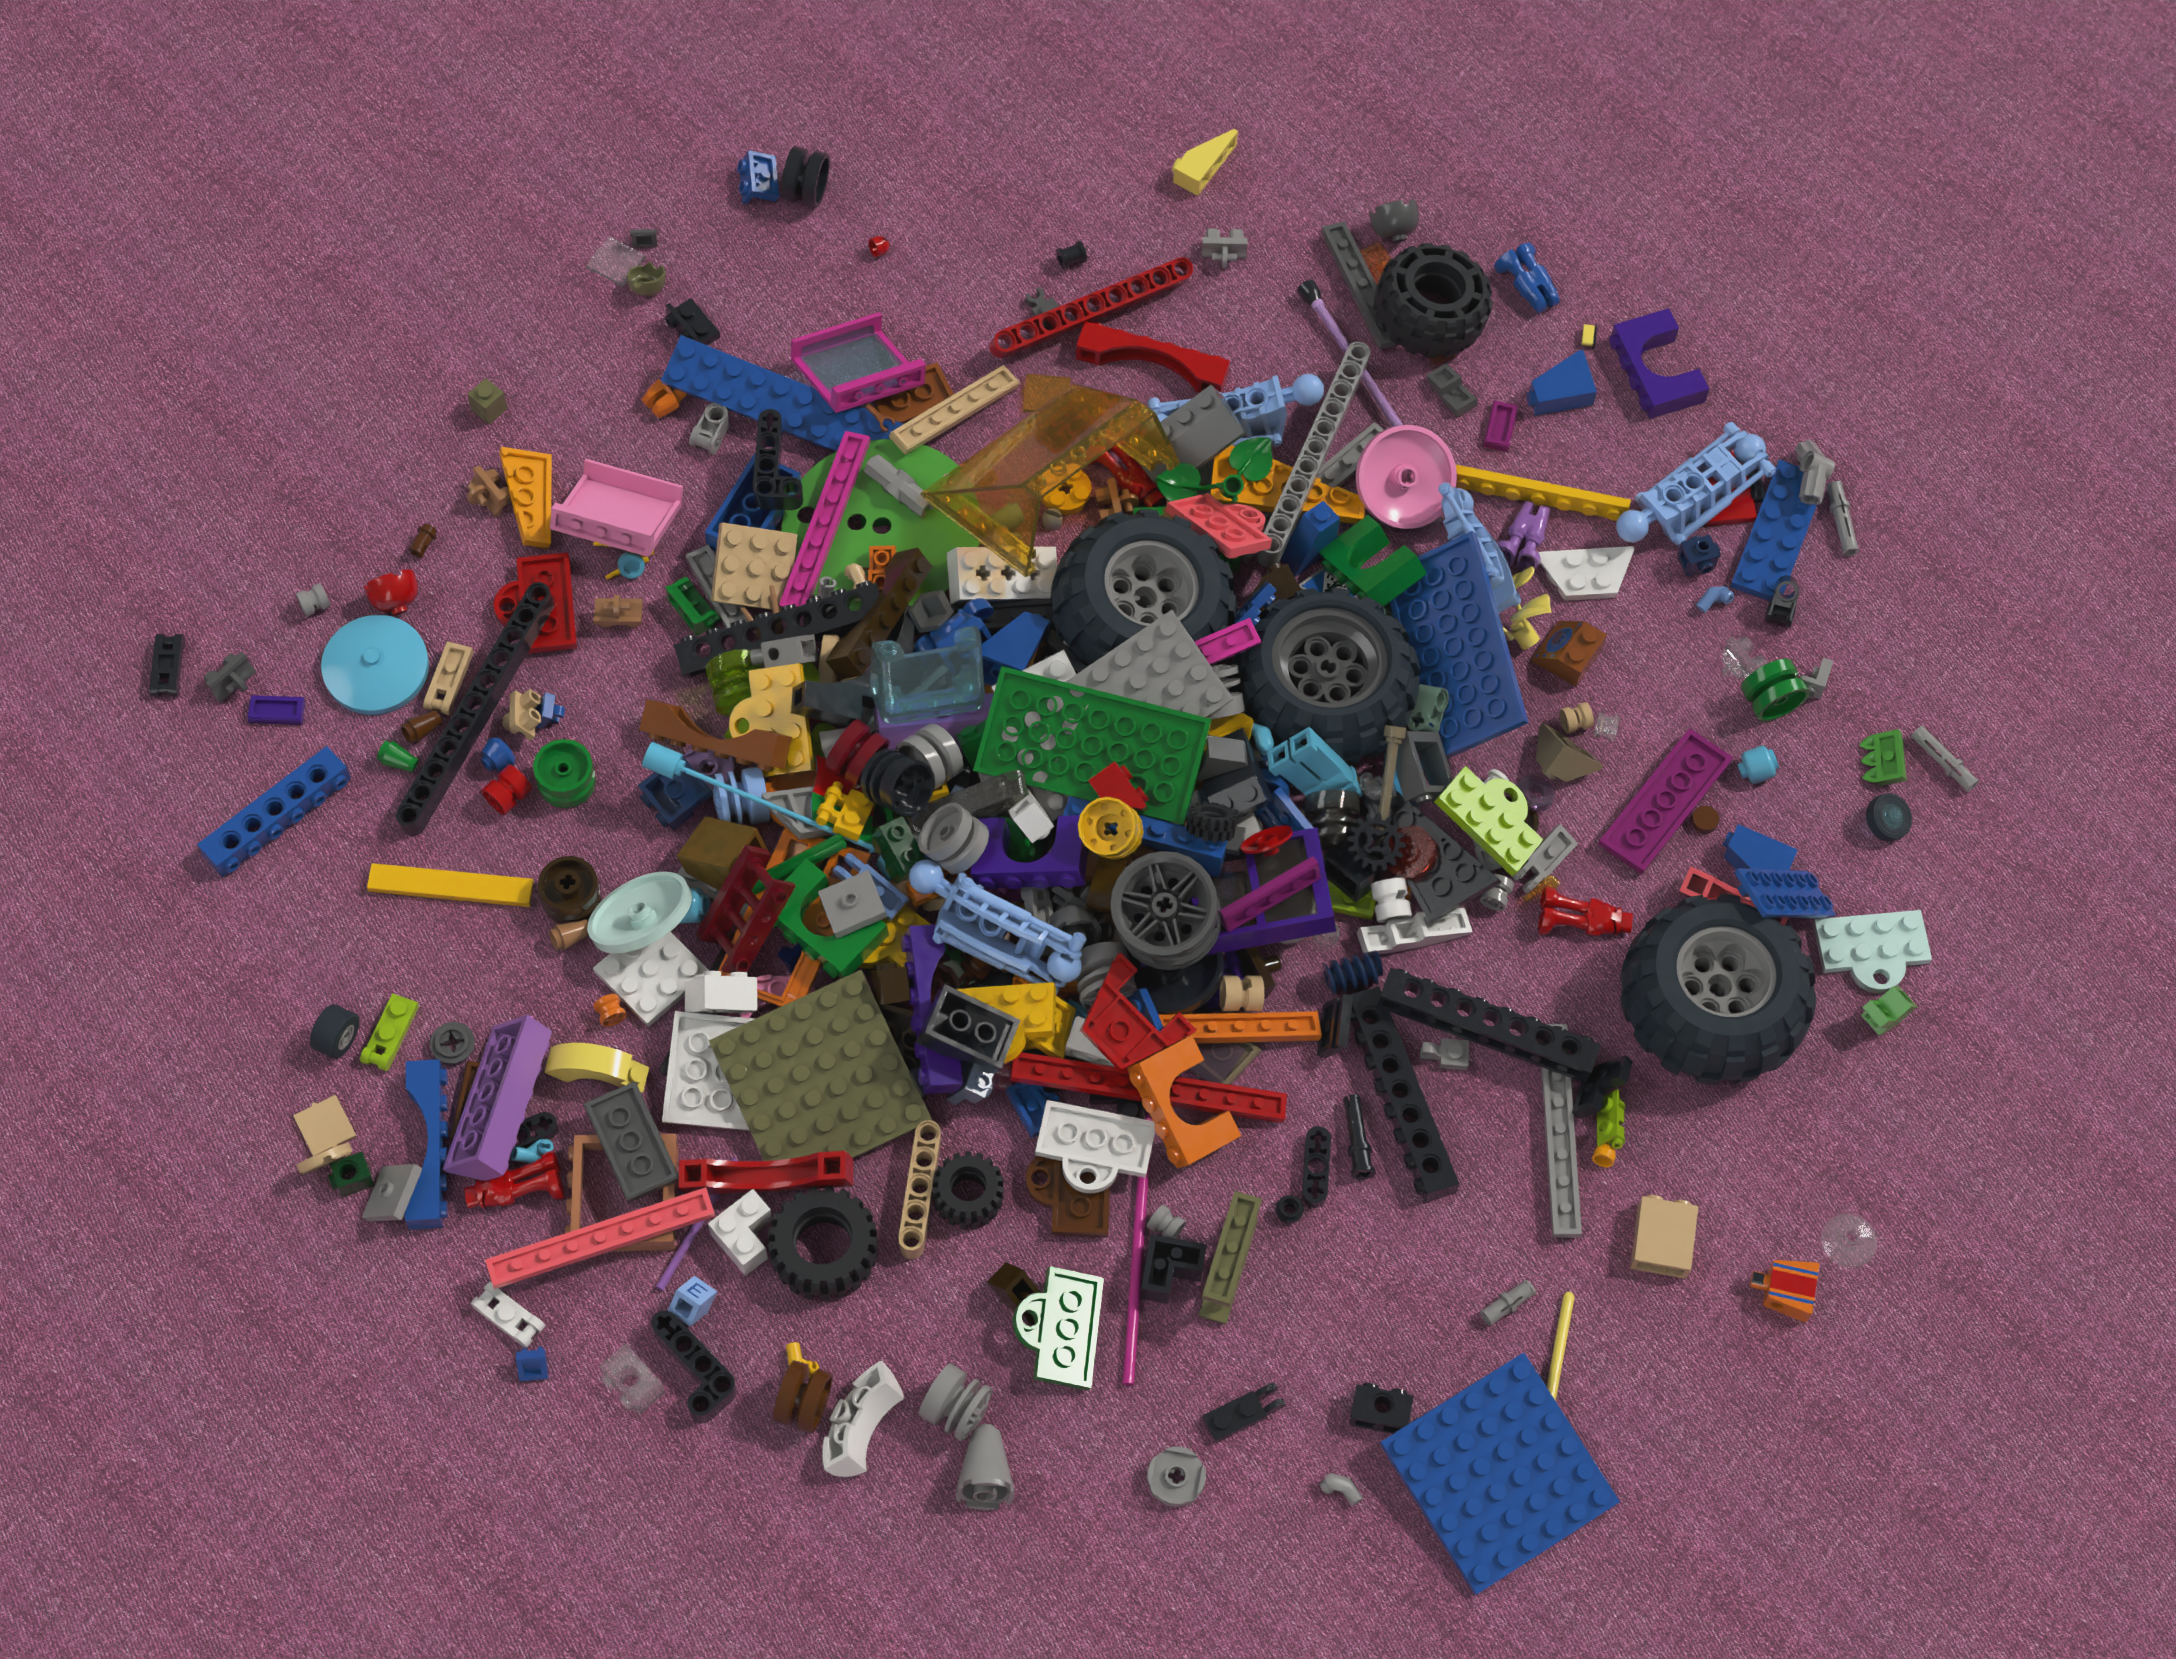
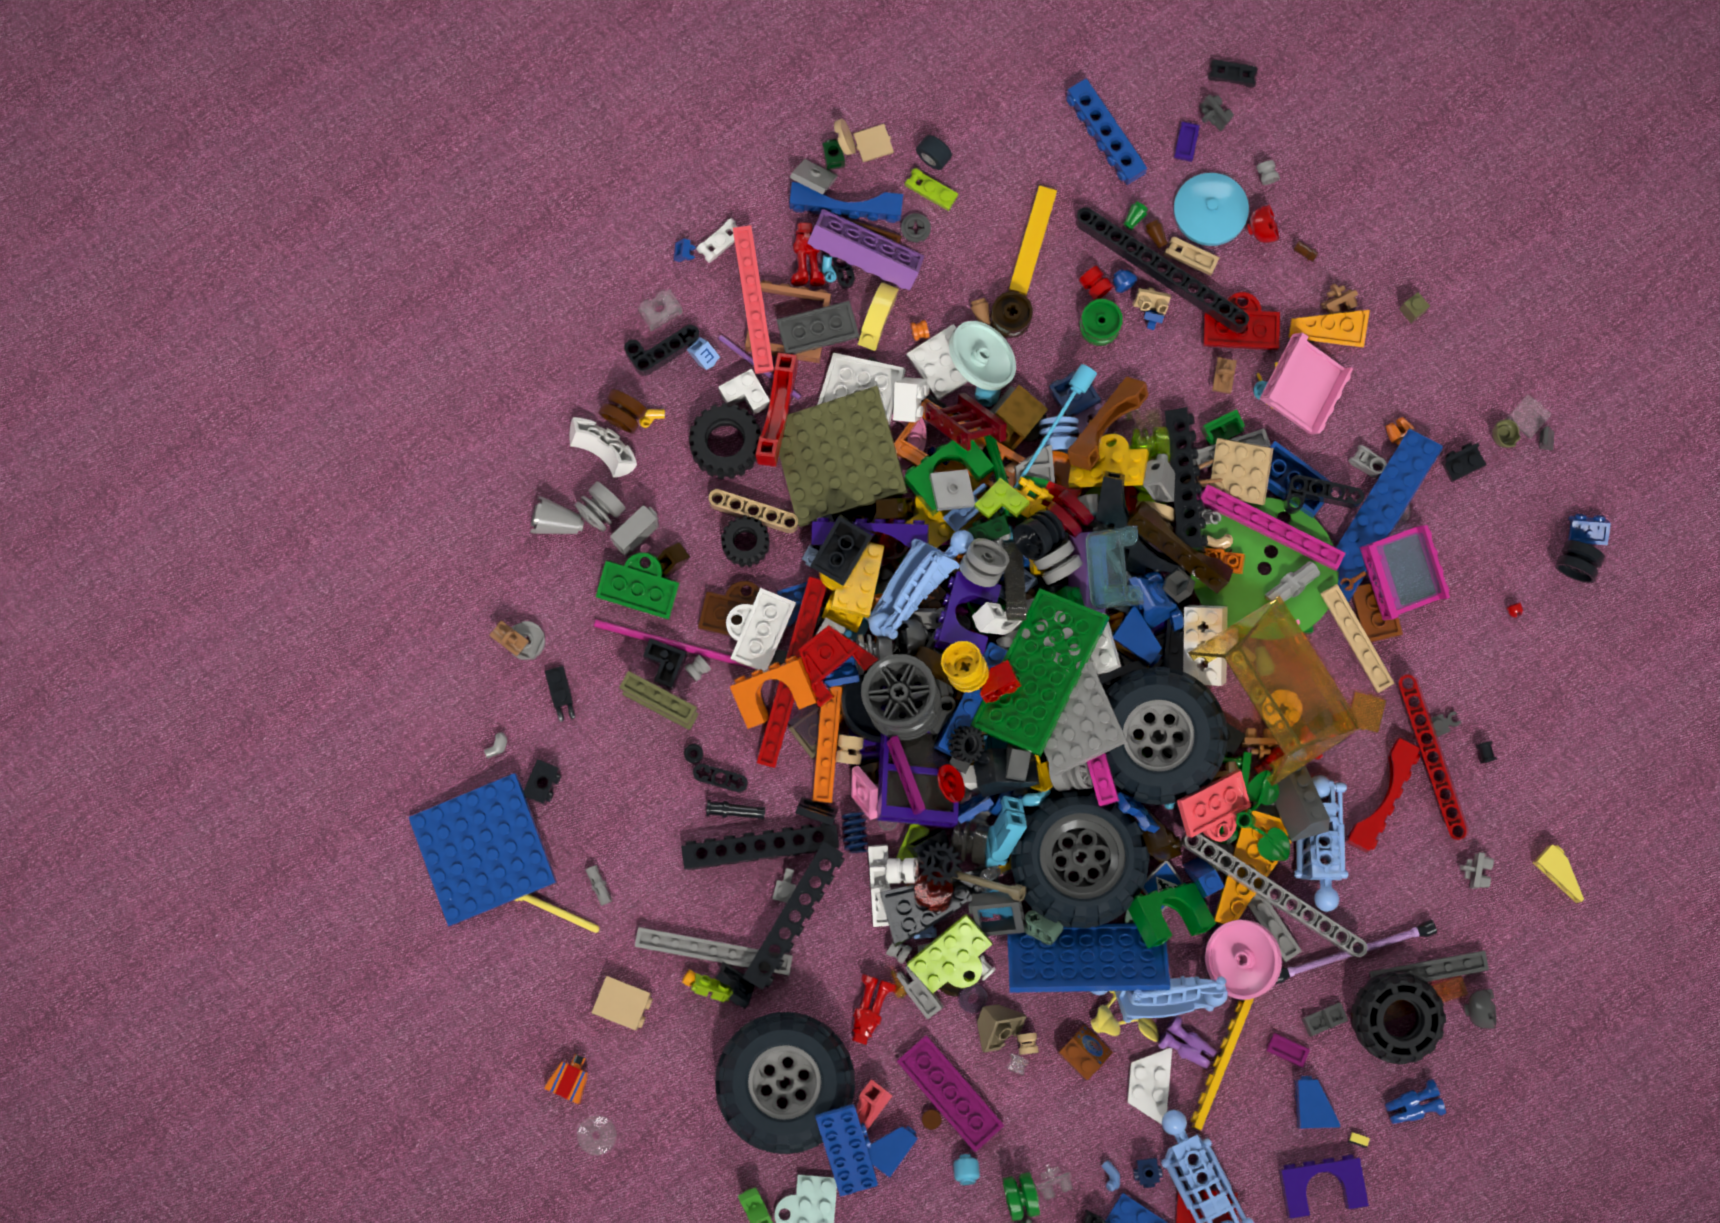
camera: 100 degrees right, 15 degrees up
(849, 836) = (1001, 495): none -> lime plate
(982, 1344) = (635, 530): none -> light grey window
(1183, 1491) = (509, 638): none -> medium nougat hips
(1298, 961) = (864, 792): none -> bright pink tile

